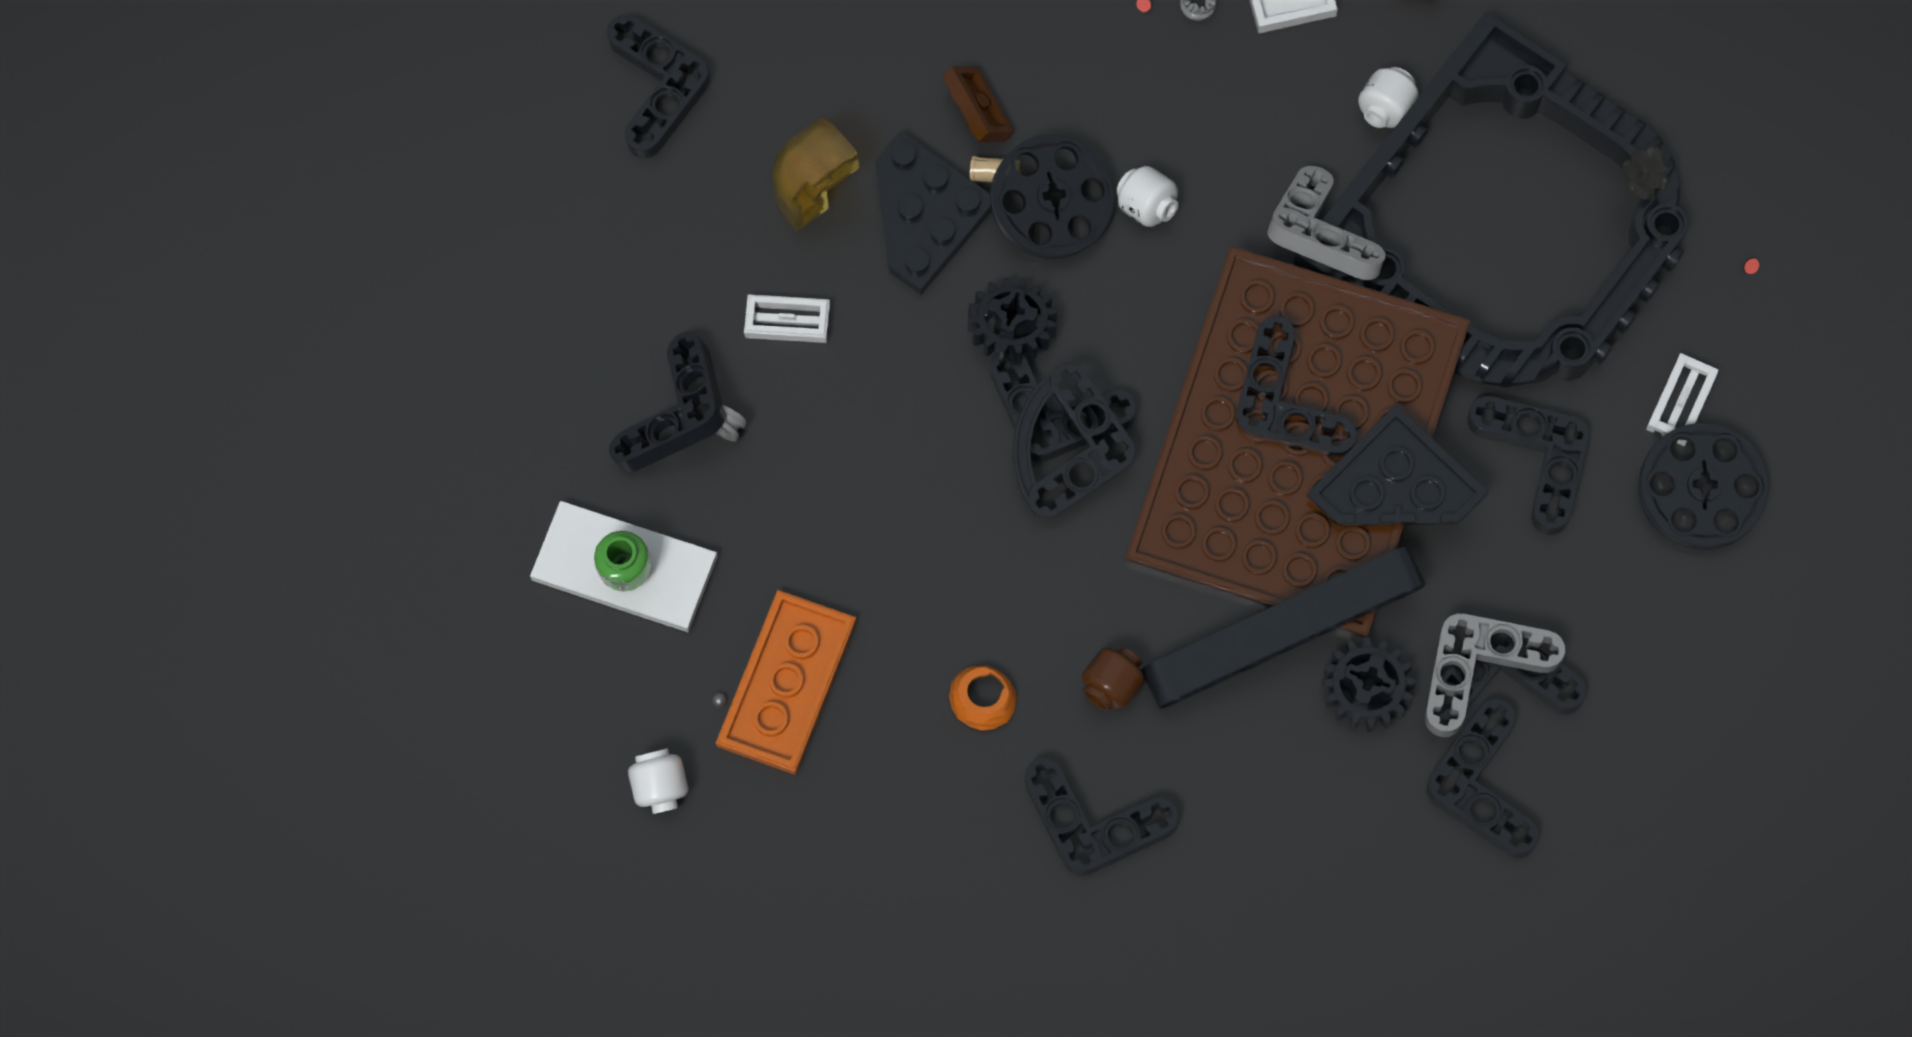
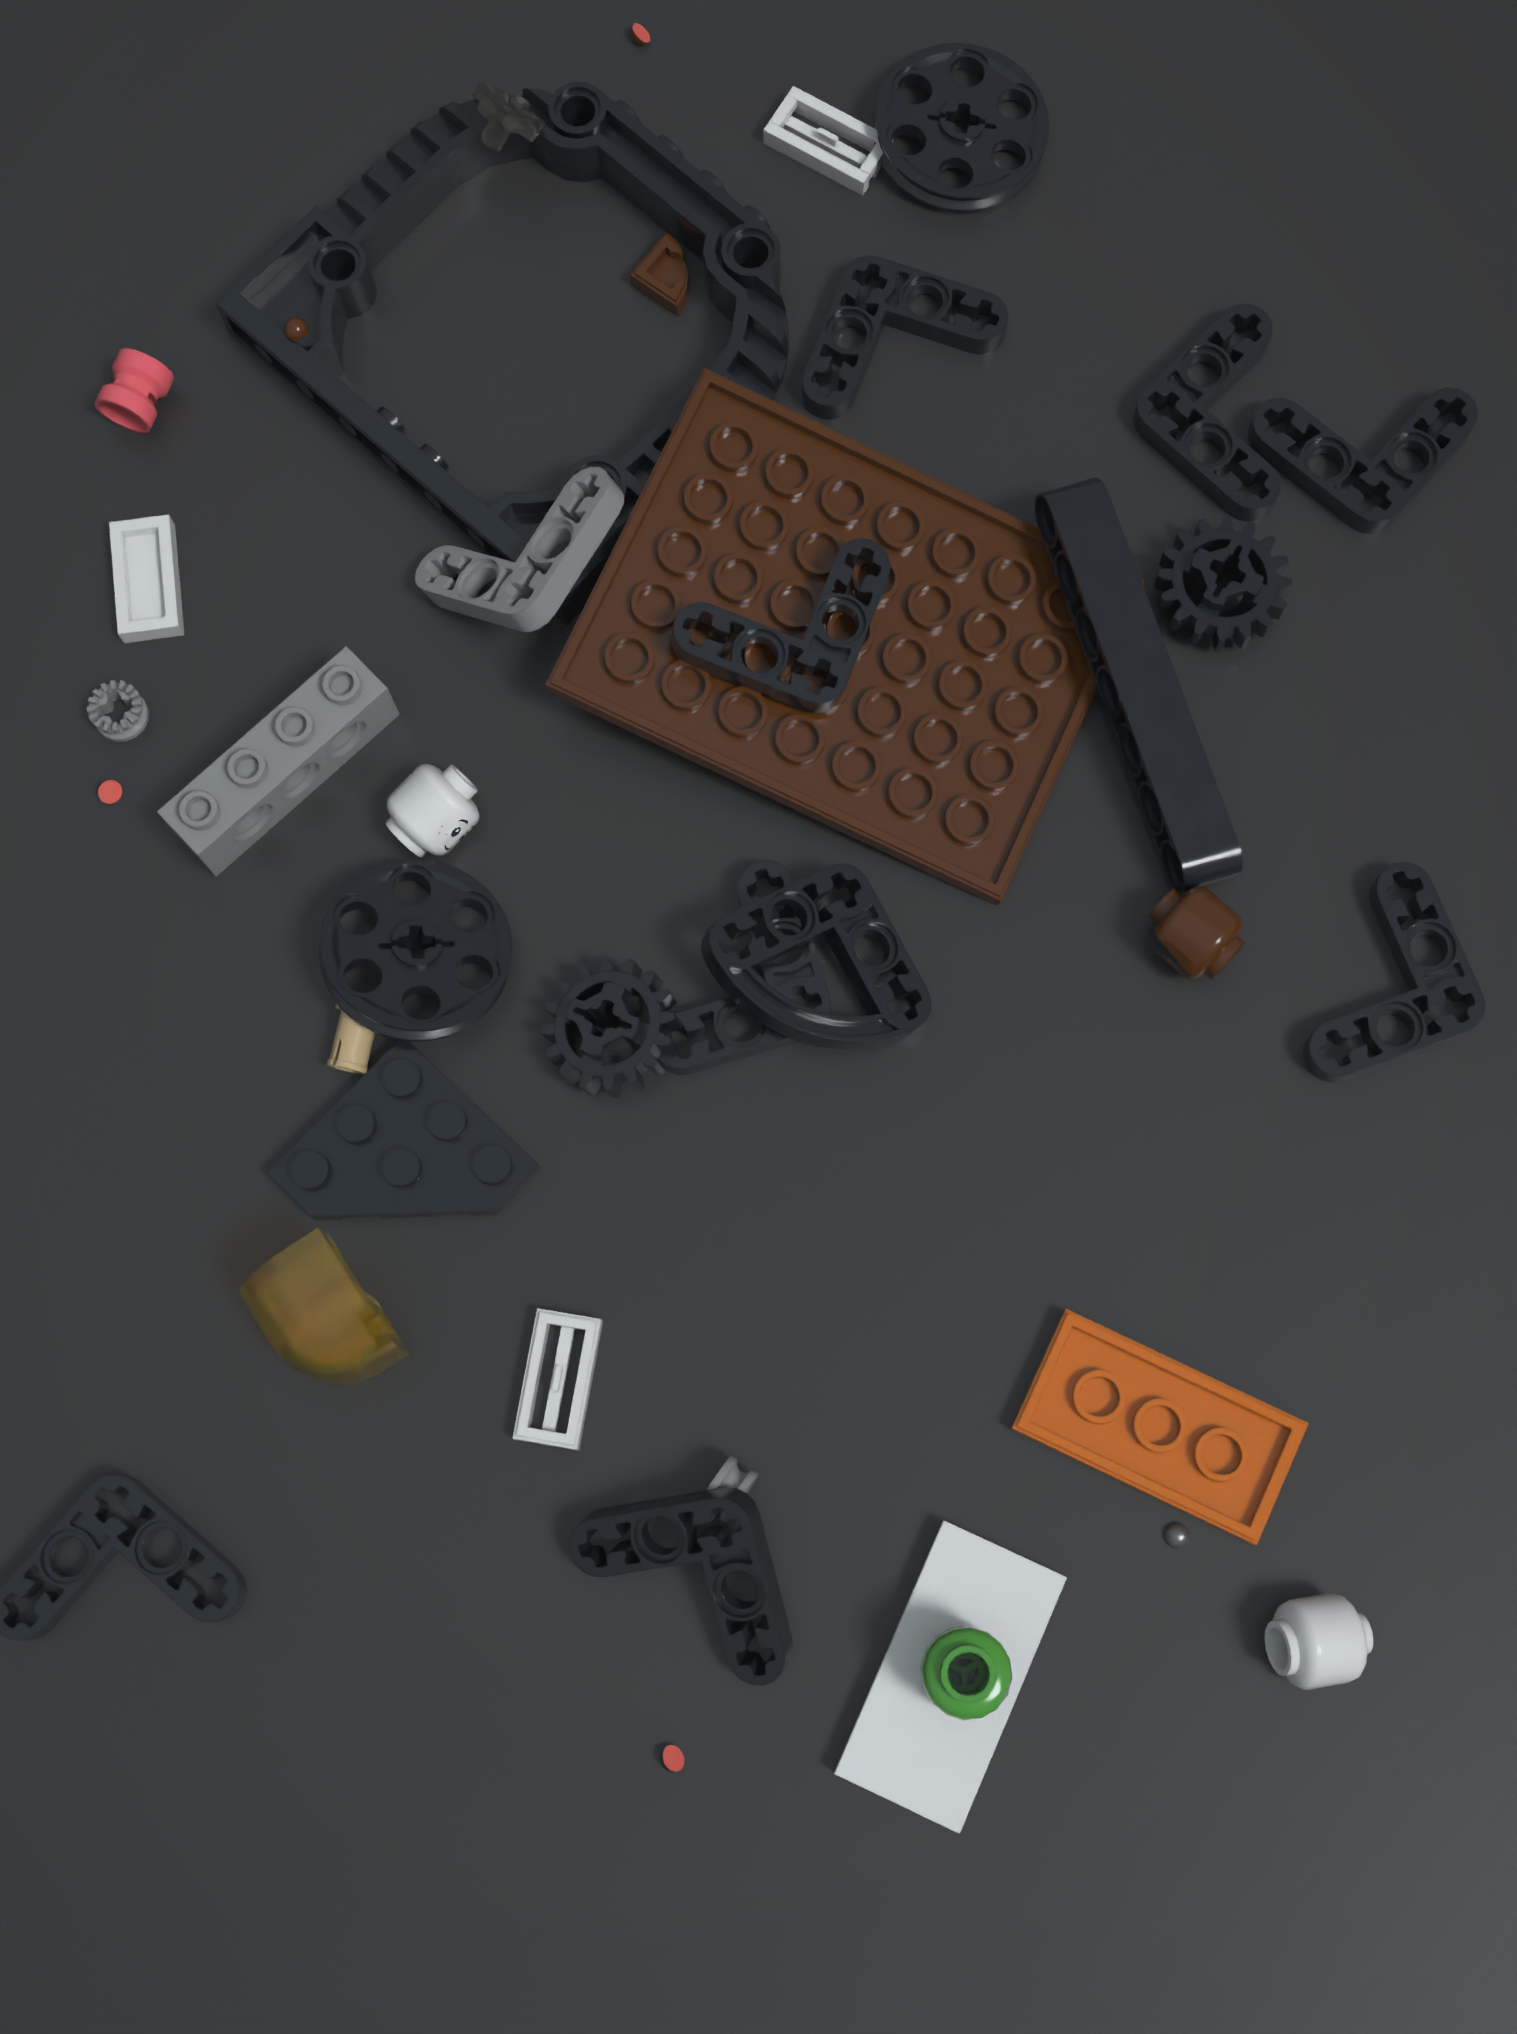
camera: 85 degrees left, 5 degrees up
(563, 410) = (672, 1758): none -> coral piece
(976, 716) = (1193, 1162): orange piece -> none
(978, 104) = (241, 1048): reddish brown plate -> none
(1169, 100) = (280, 761): none -> light grey brick
(1387, 97) = (324, 456): white head -> none
(1397, 480) = (936, 496): black plate -> none
(1471, 64) = (296, 329): none -> reddish brown piece
(1479, 648) = (1183, 433): light grey beam -> none
(1561, 301) = (664, 275): none -> reddish brown tile

